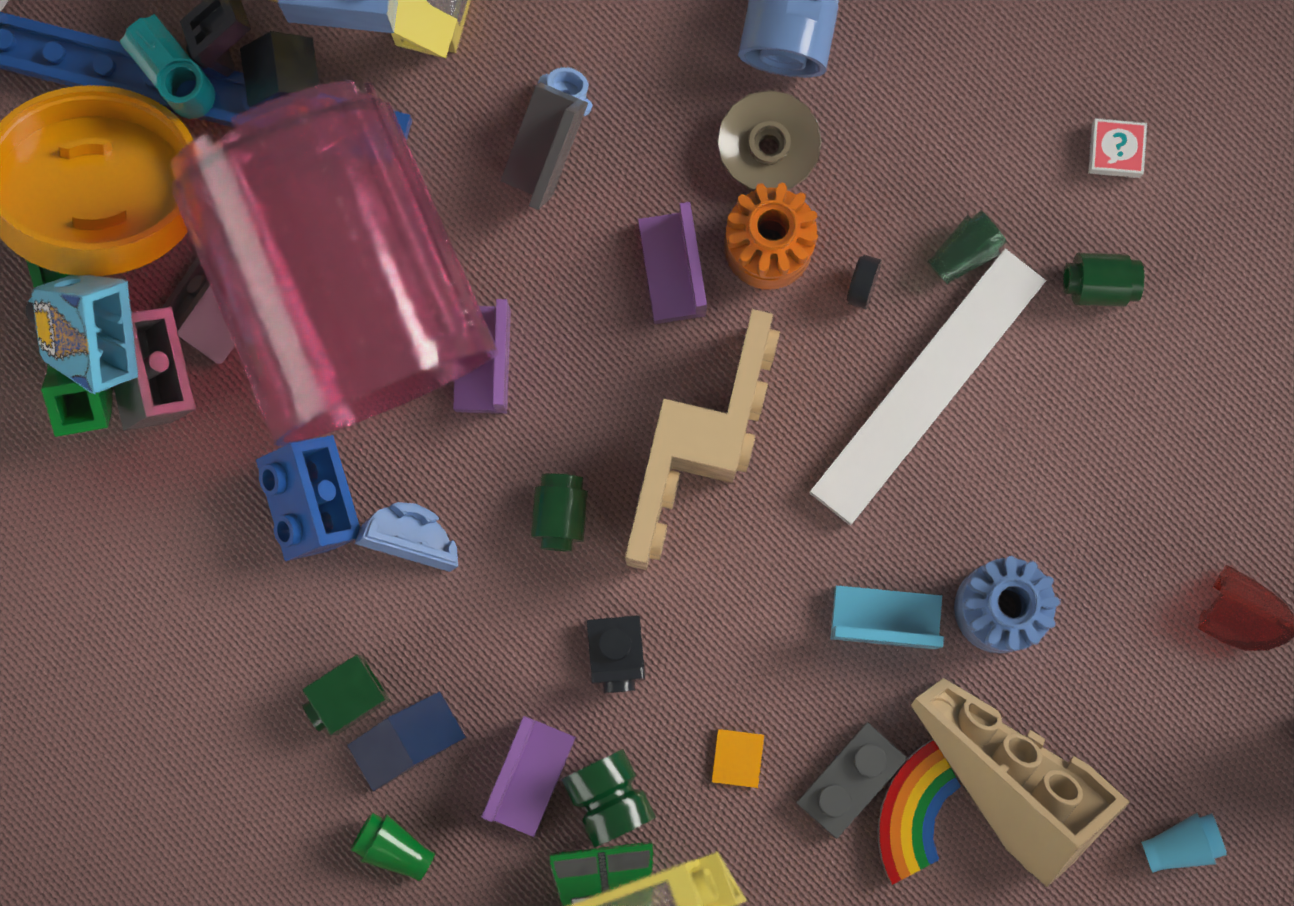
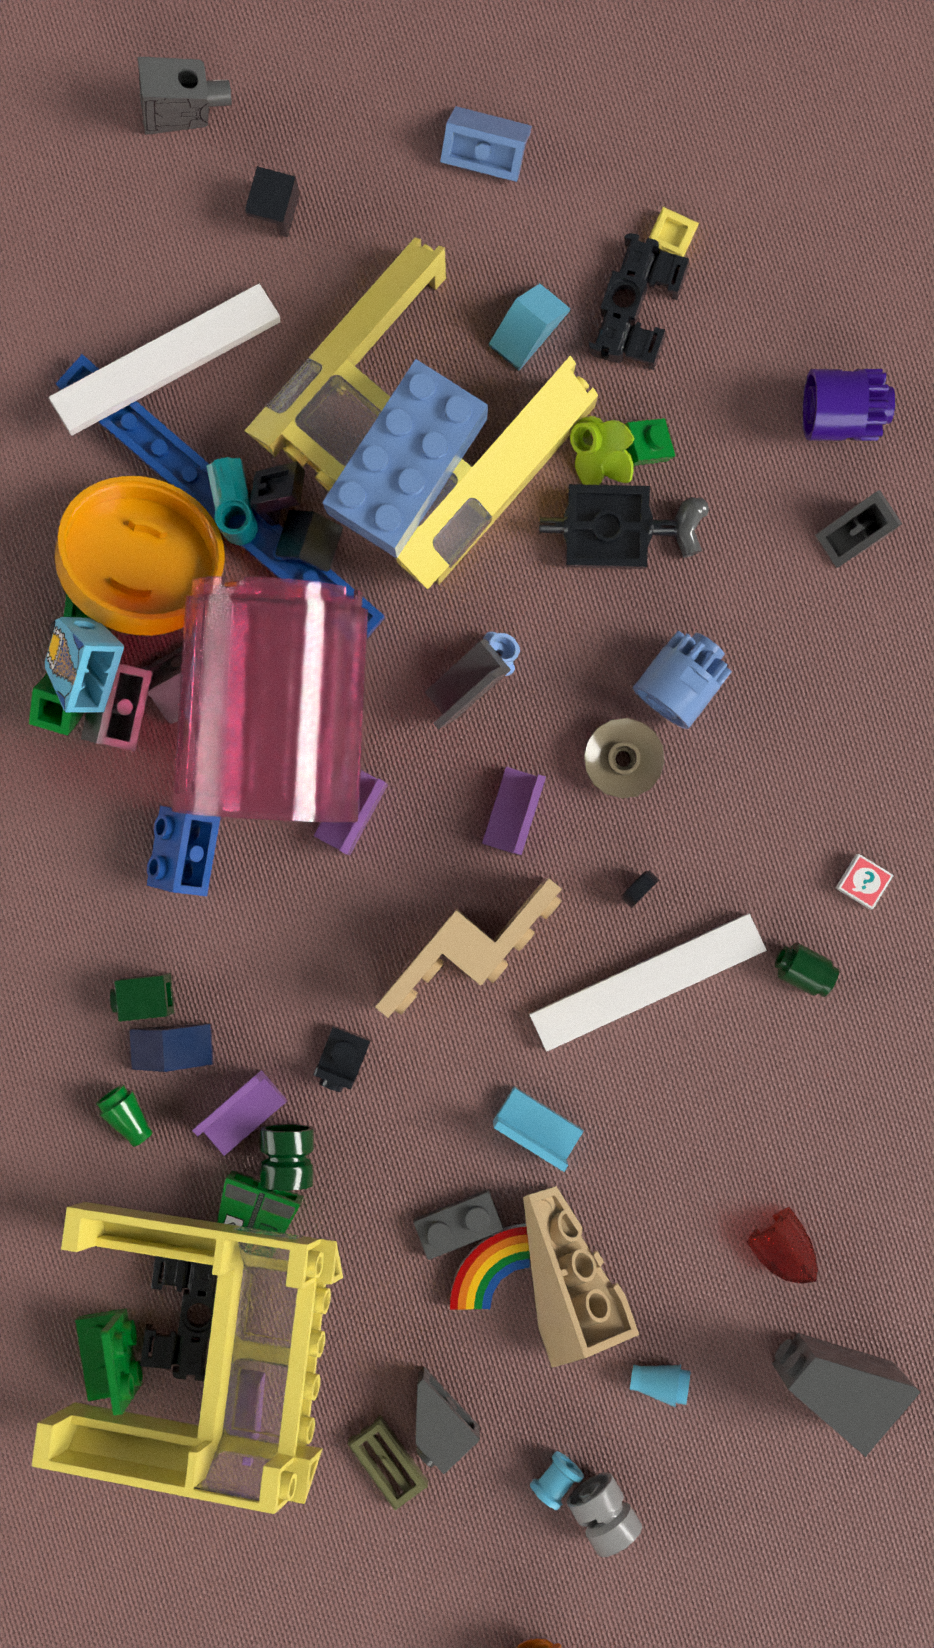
camera: 25 degrees right, 5 degrees up
(410, 534) = (240, 908): medium blue tile -> none
(559, 511) = (350, 944): dark green brick -> none
(737, 758) = (389, 1170): light orange piece -> none
(767, 262) = (611, 821): orange gear -> none
(967, 247) = (723, 900): clear green cone -> none
(979, 613) = (616, 1143): medium blue gear -> none

